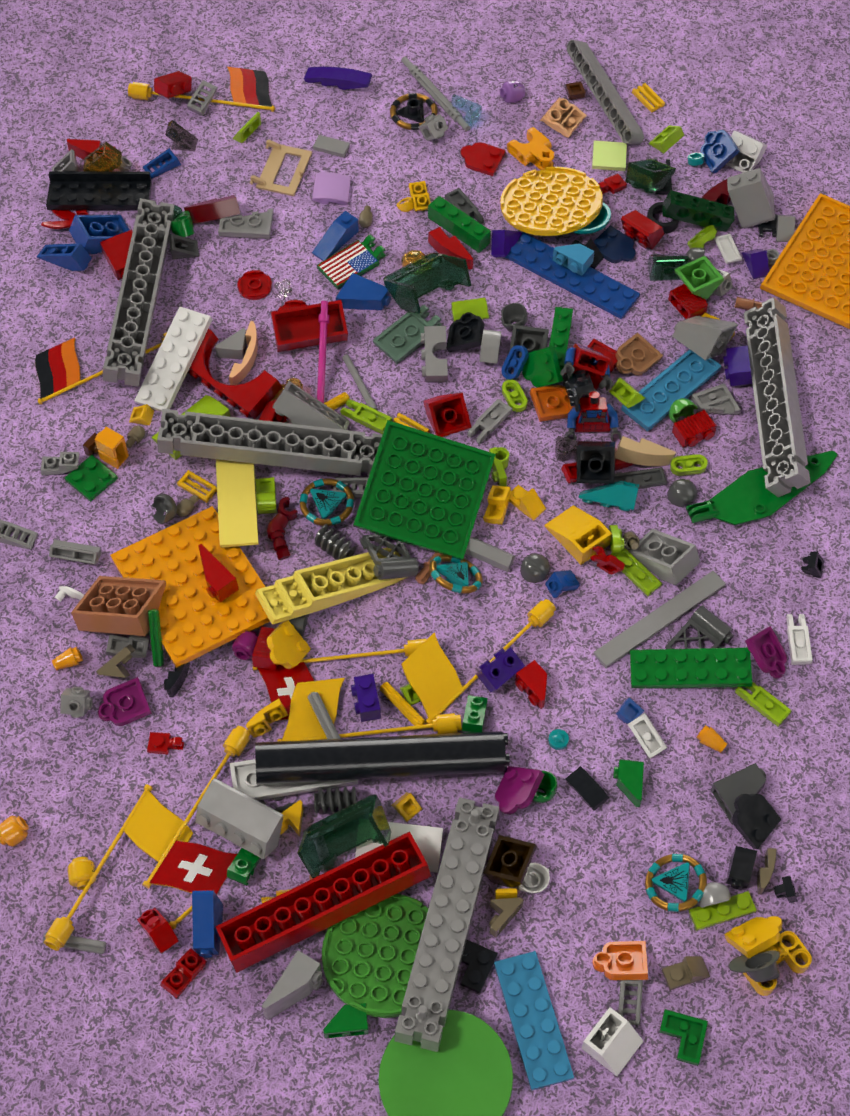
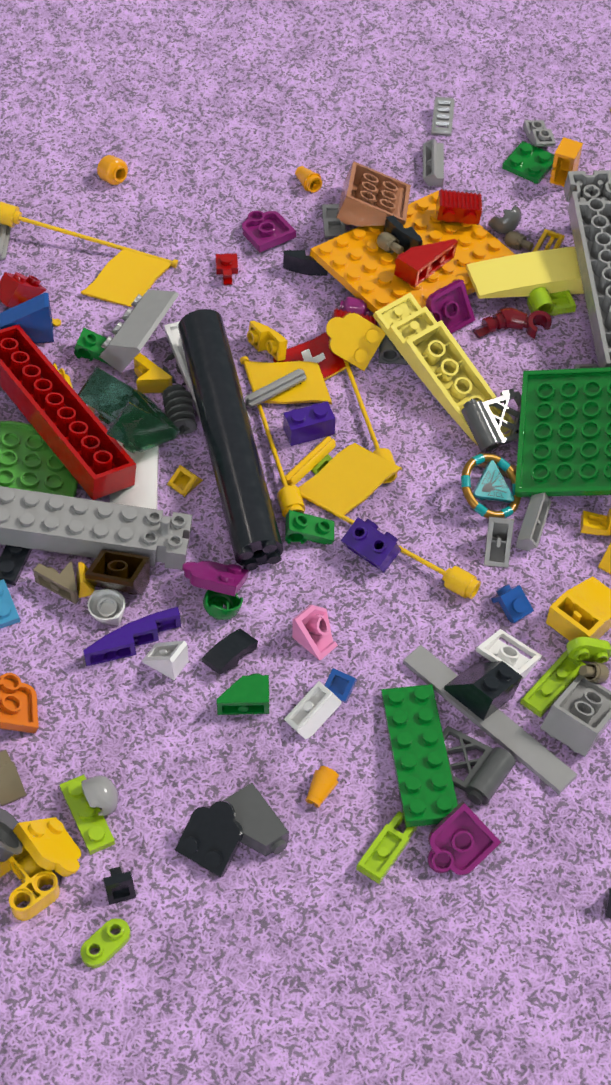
camera: 80 degrees right, 5 degrees down
(64, 590) = (387, 165): white bar -> none
(75, 702) = (257, 188): light grey brick -> none
(80, 872) = (75, 222): yellow head -> none
(114, 666) = (307, 211): dark tan slope -> none
(148, 539) = (459, 207): none -> red brick
(155, 634) = (345, 225): green axle -> none
(185, 599) = (389, 243): none -> dark tan cylinder
(188, 583) = (407, 237): none -> black slope
(193, 865) = (94, 307): red flag -> none
(261, 567) = (451, 306): none -> magenta plate
(326, 501) = (557, 353): piece -> none
(332, 544) = (503, 369): dark grey piece -> none
(508, 581) = (498, 542): none -> light grey slope
(533, 681) = (361, 584): red slope -> none
(535, 568) = (527, 572): dark grey hair -> none
(558, 739) = (287, 617): teal tile -> none
(568, 865) = (123, 640): none -> dark purple slope
(575, 725) = (313, 631): none -> bright pink slope
(588, 836) = (168, 658): none -> white slope
(609, 563) = (551, 646): red plate -> none
(611, 595) = (496, 650): none -> white slope
(641, 613) = (484, 687): none -> black slope
(675, 882) = (113, 751): piece -> none
(741, 867) = (139, 823): black slope -> none
(765, 874) = (132, 857): dark tan slope -> none
(799, 641) = (493, 888): white hinge -> none
(829, 905) = (106, 942): none -> lime plate

